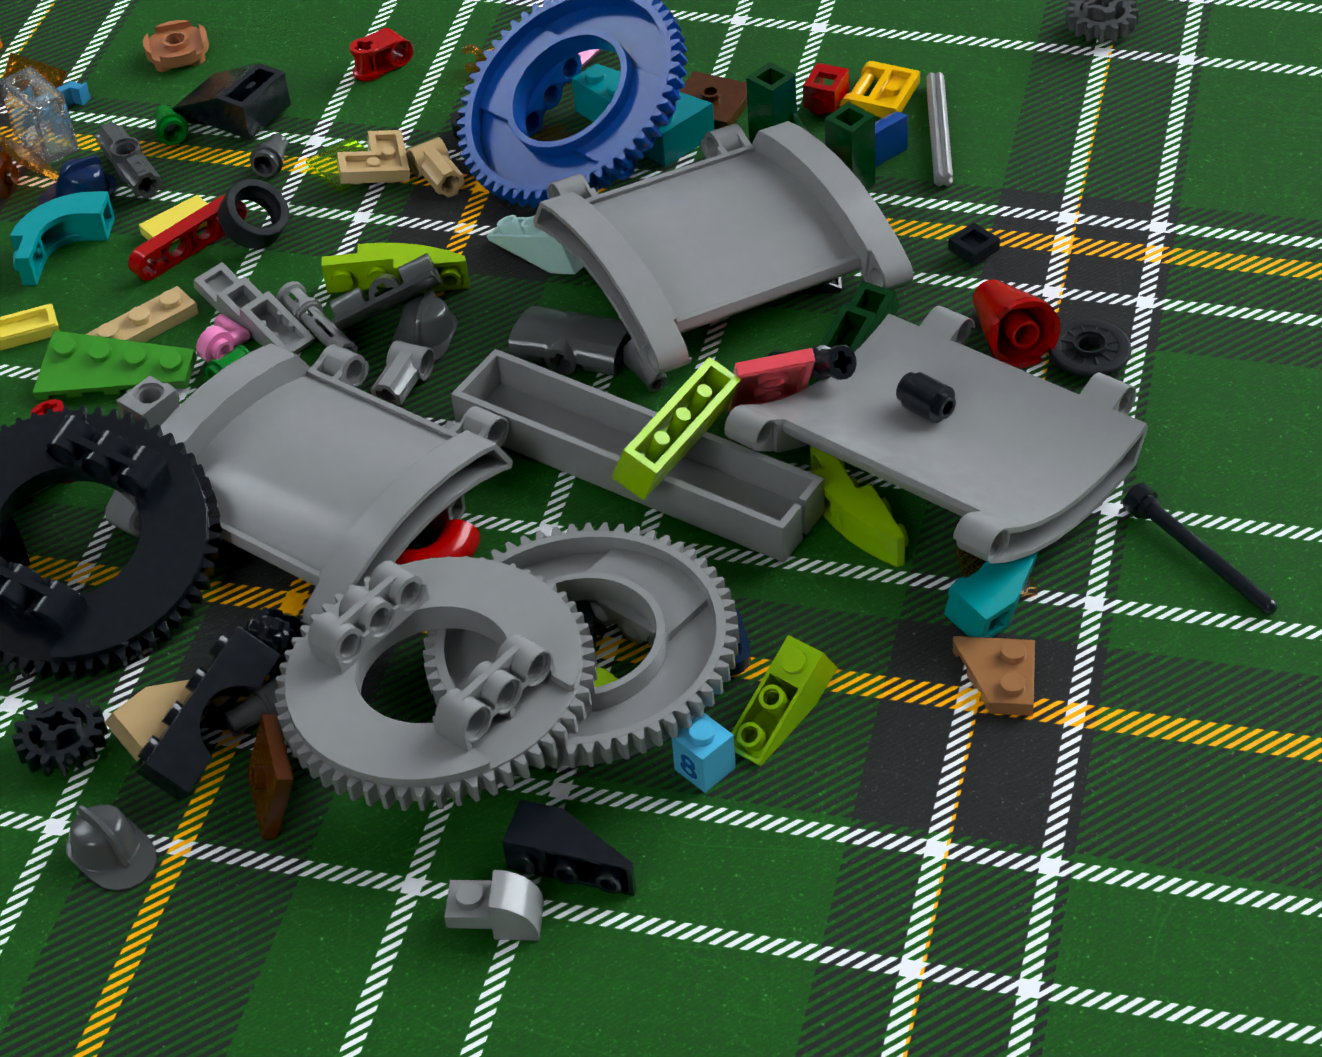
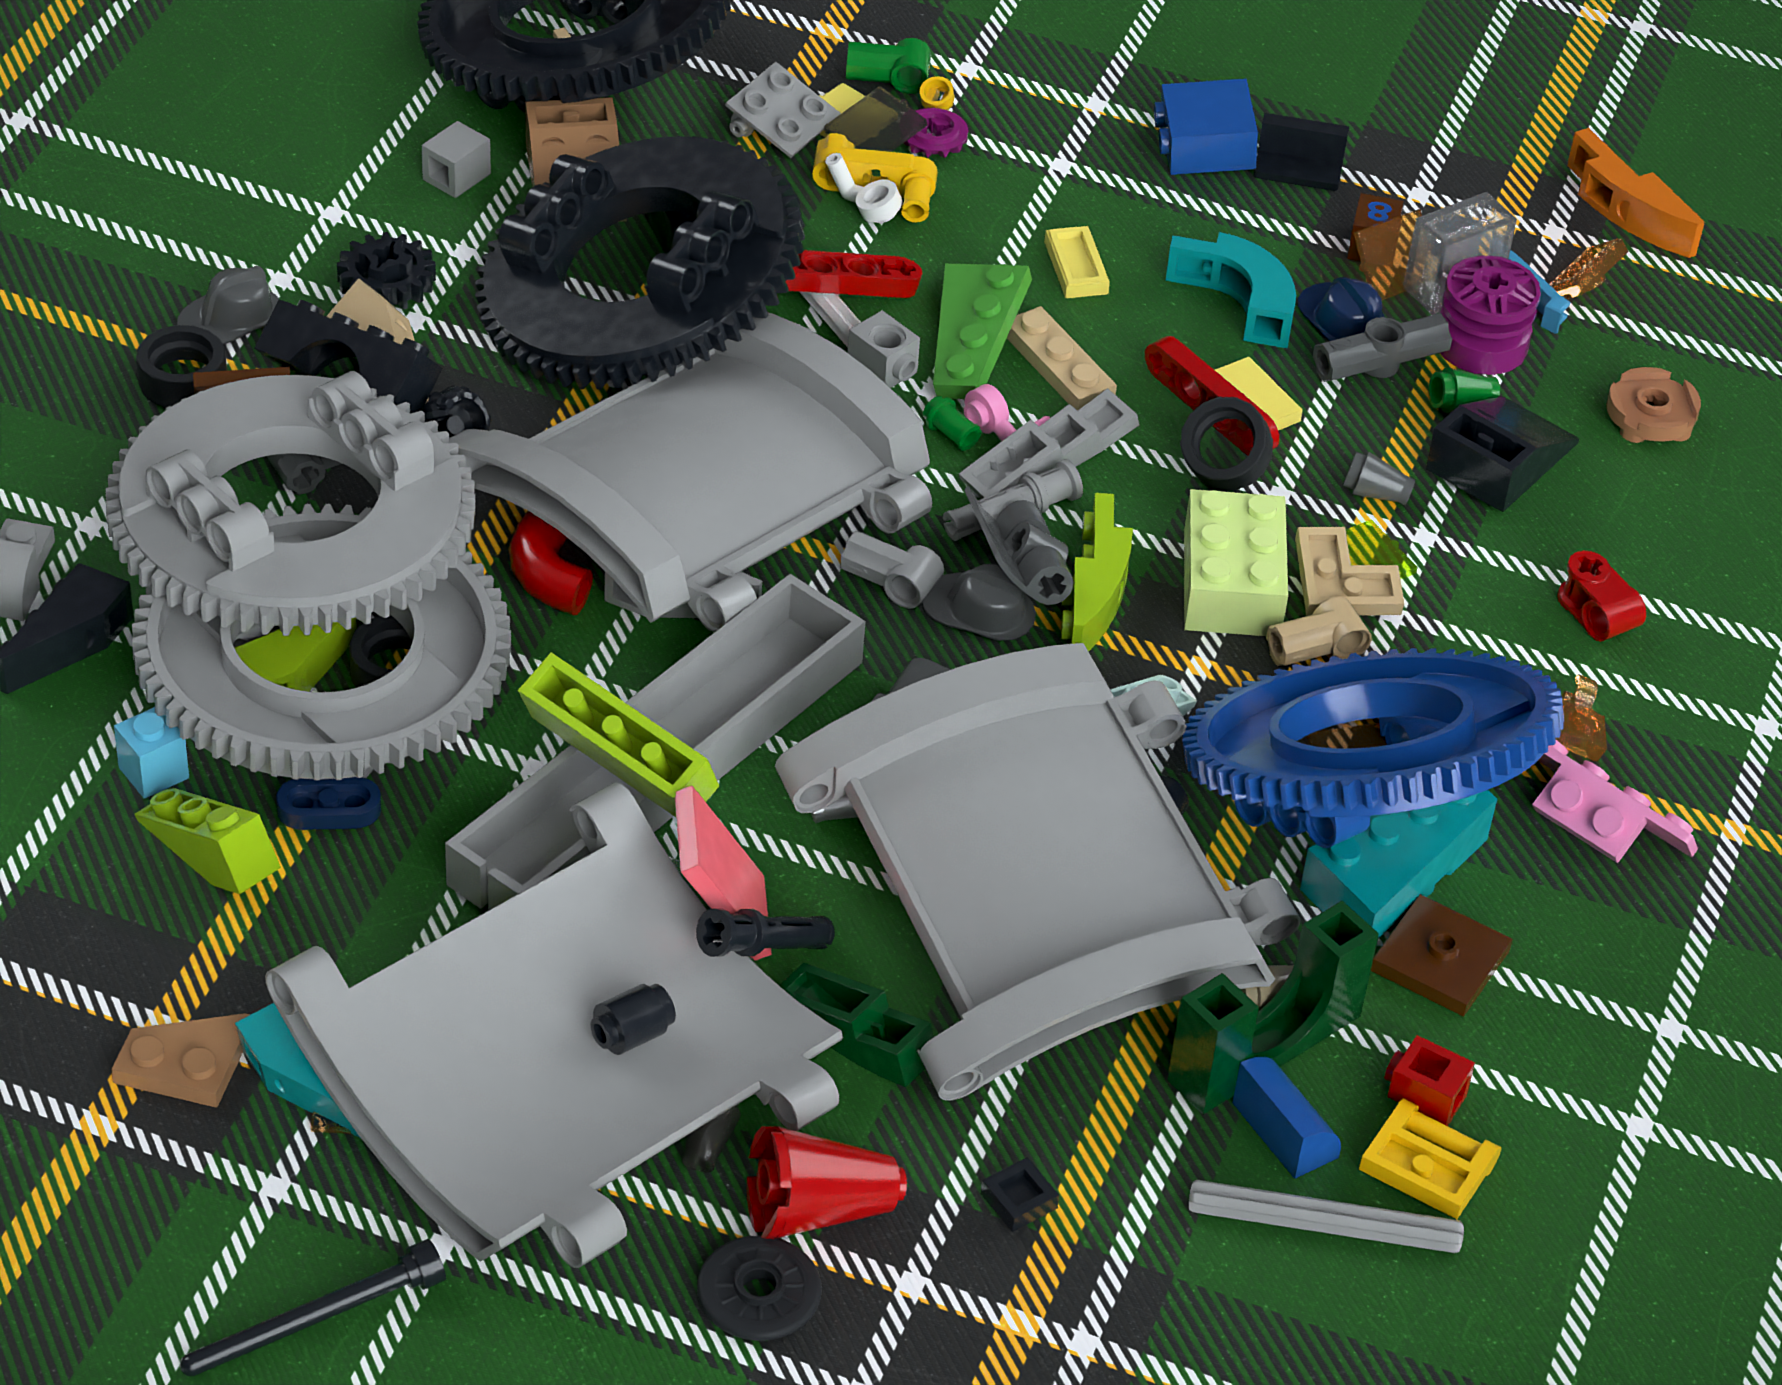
camera: 90 degrees right, 0 degrees up
(95, 97) = (1489, 314): none -> magenta wheel
(208, 880) = (174, 344): none -> black tyre
(373, 205) = (1235, 562): none -> yellowish green brick

